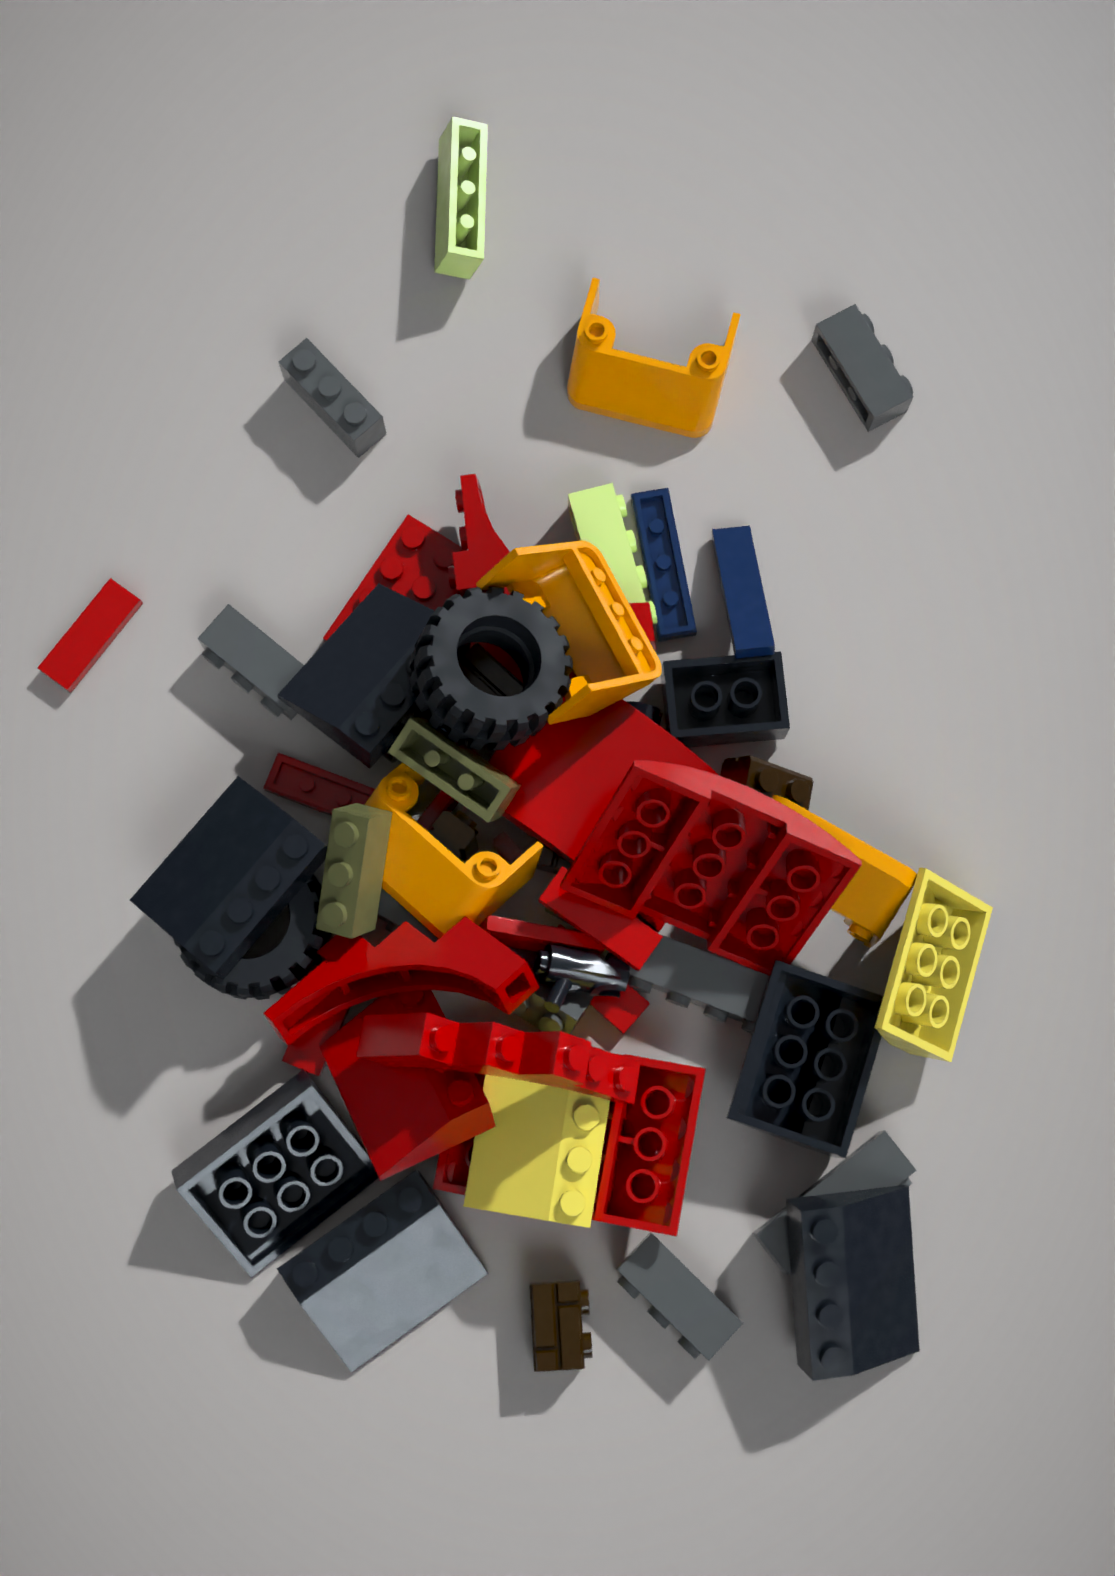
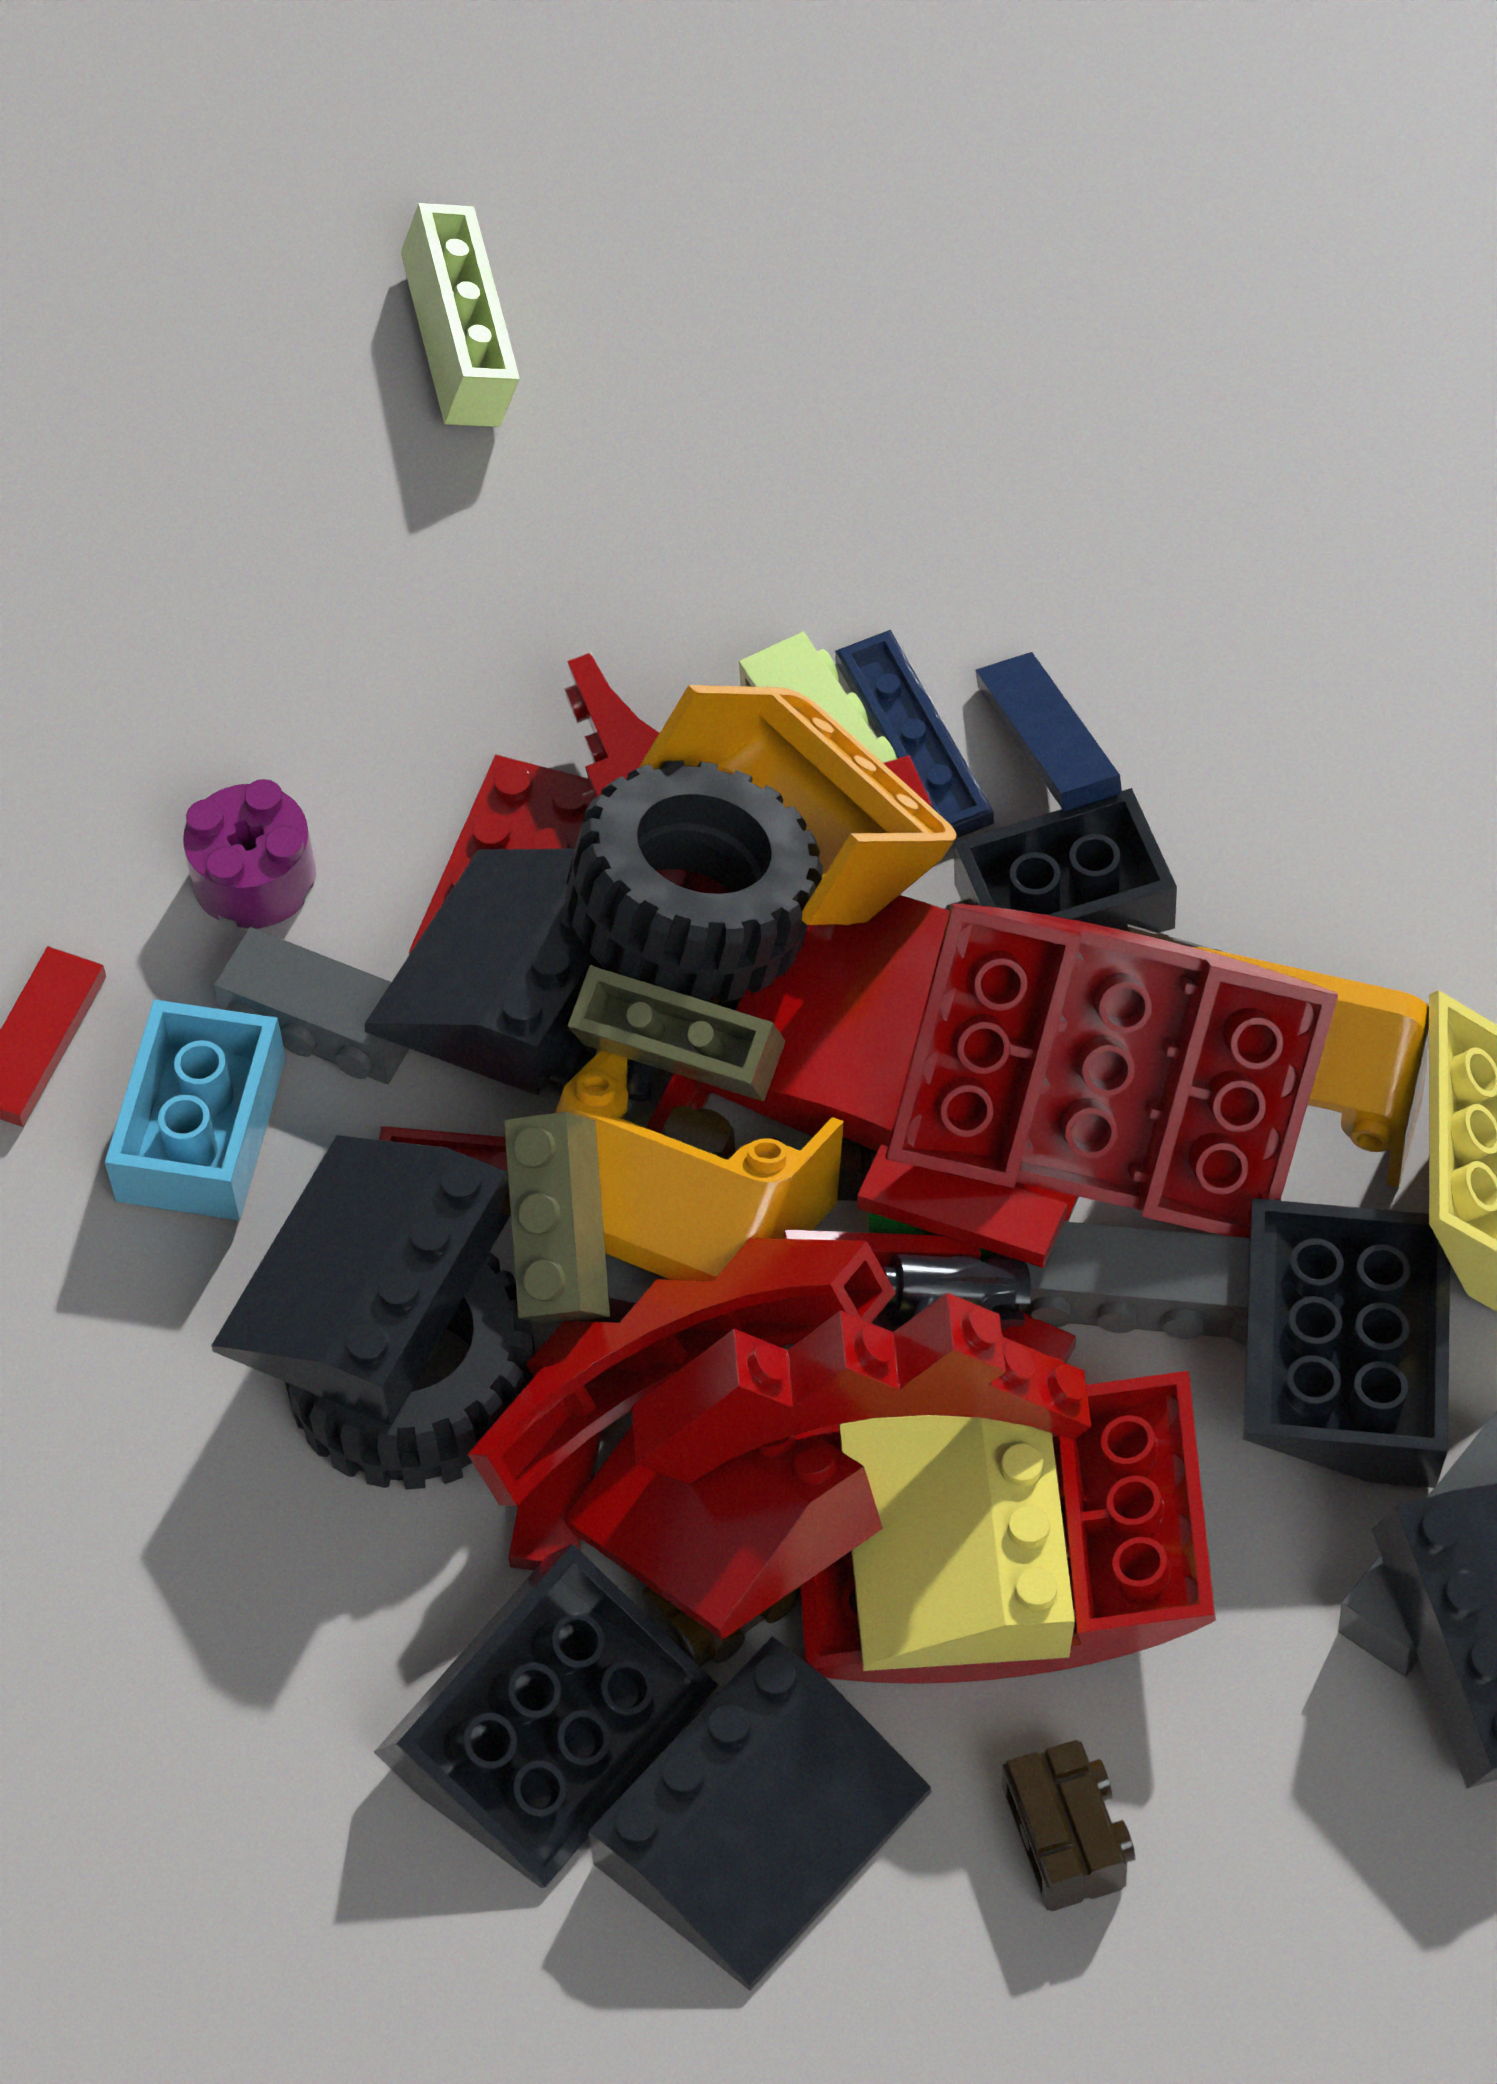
camera: 10 degrees left, 20 degrees down
(168, 718) = (196, 1110): none -> medium azure brick
(229, 532) = (249, 854): none -> magenta brick
(332, 397) = (334, 622): dark grey brick -> none
(642, 387) = (813, 499): light orange windscreen -> none
(677, 1298) = (1246, 1736): dark grey brick -> none
(862, 367) = (1139, 404): dark grey brick -> none

